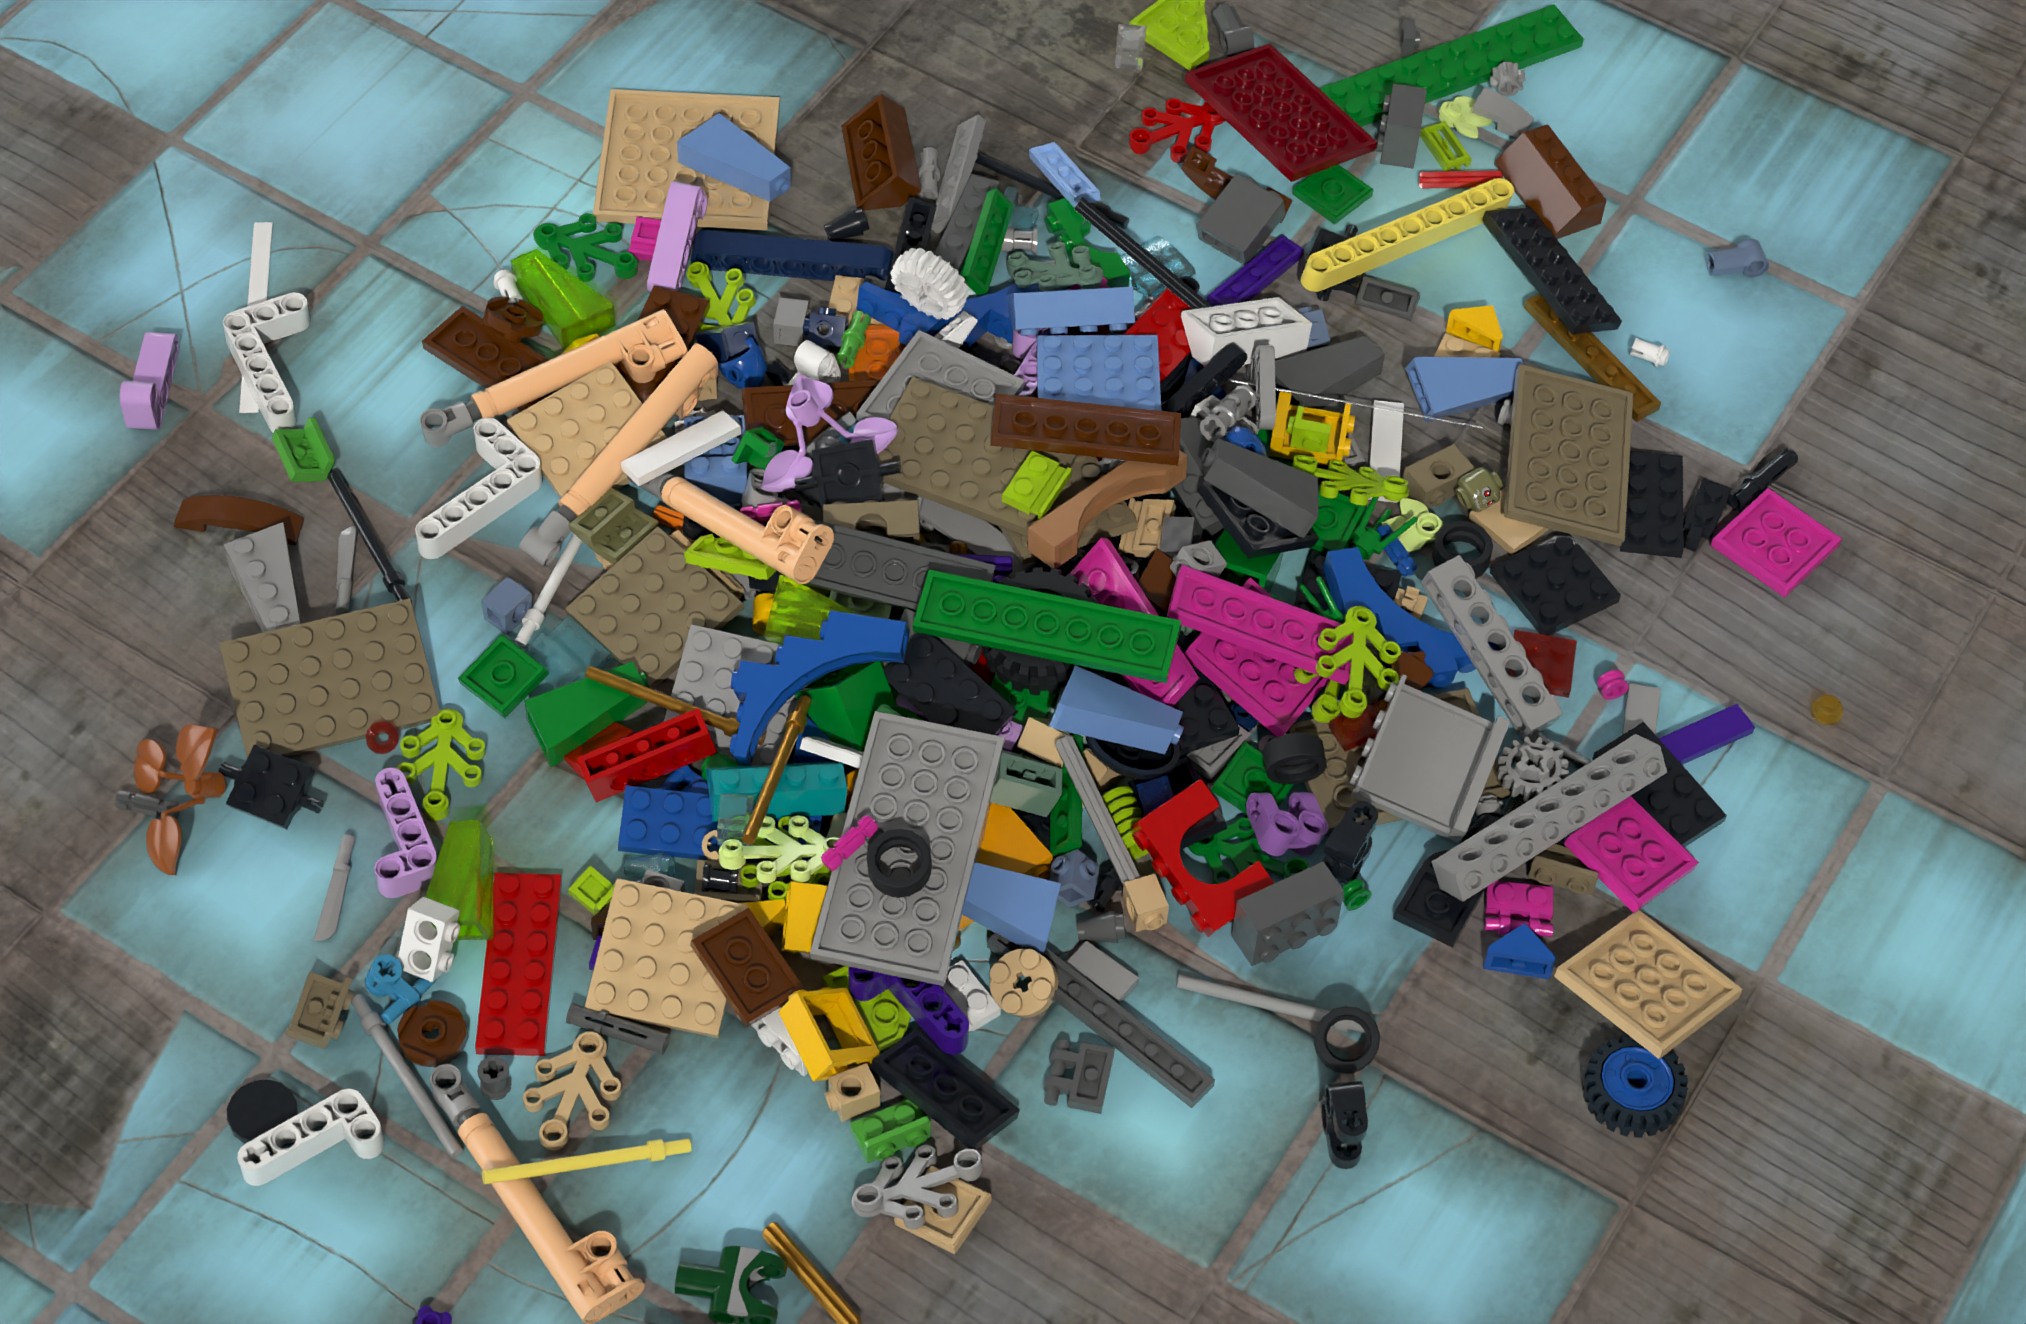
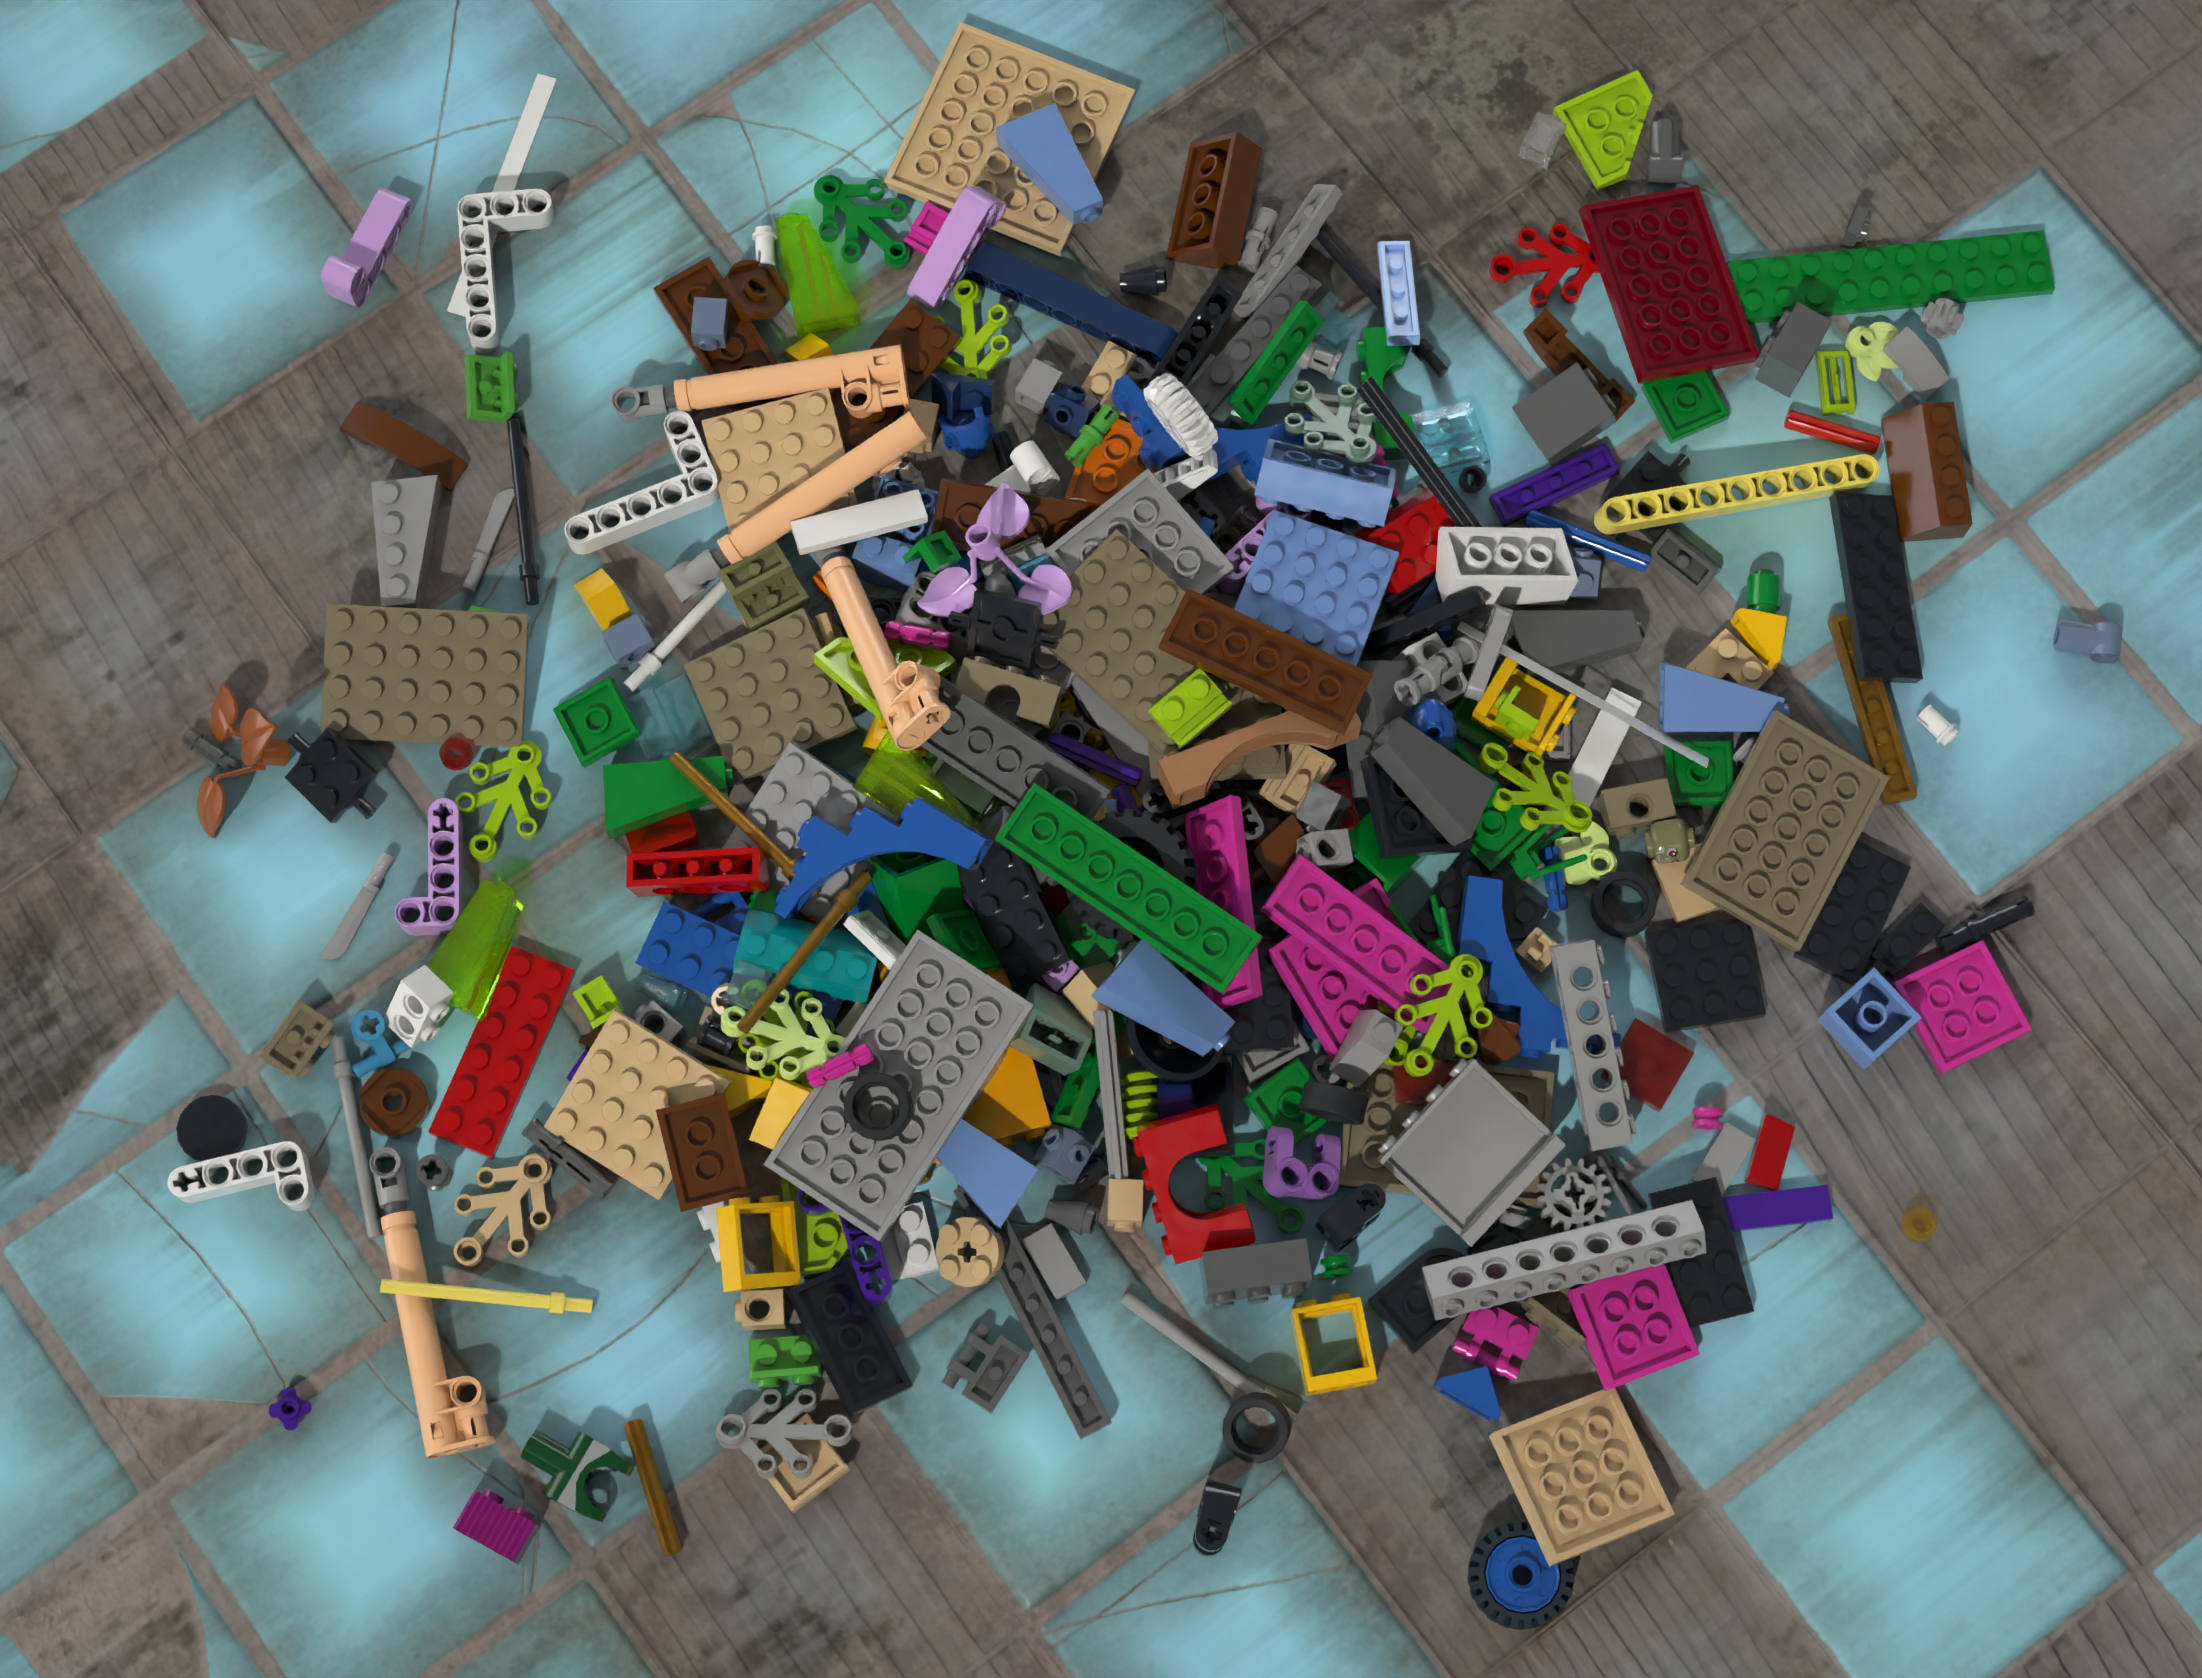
camera: 20 degrees right, 20 degrees up
(469, 581) = (603, 599): none -> yellow slope
(485, 346) = (710, 323): none -> sand blue brick
(1302, 702) = (1365, 1046): none -> light grey slope
(1330, 306) = (1586, 539): none -> blue axle
(1396, 984) = (1340, 1380): none -> yellow window
(1462, 295) = (1764, 591): none -> green brick
(1481, 446) = (1694, 784): none -> green tile
(1675, 696) = (1769, 1153): none -> red slope
(1707, 568) = (1869, 1018): none -> medium blue brick

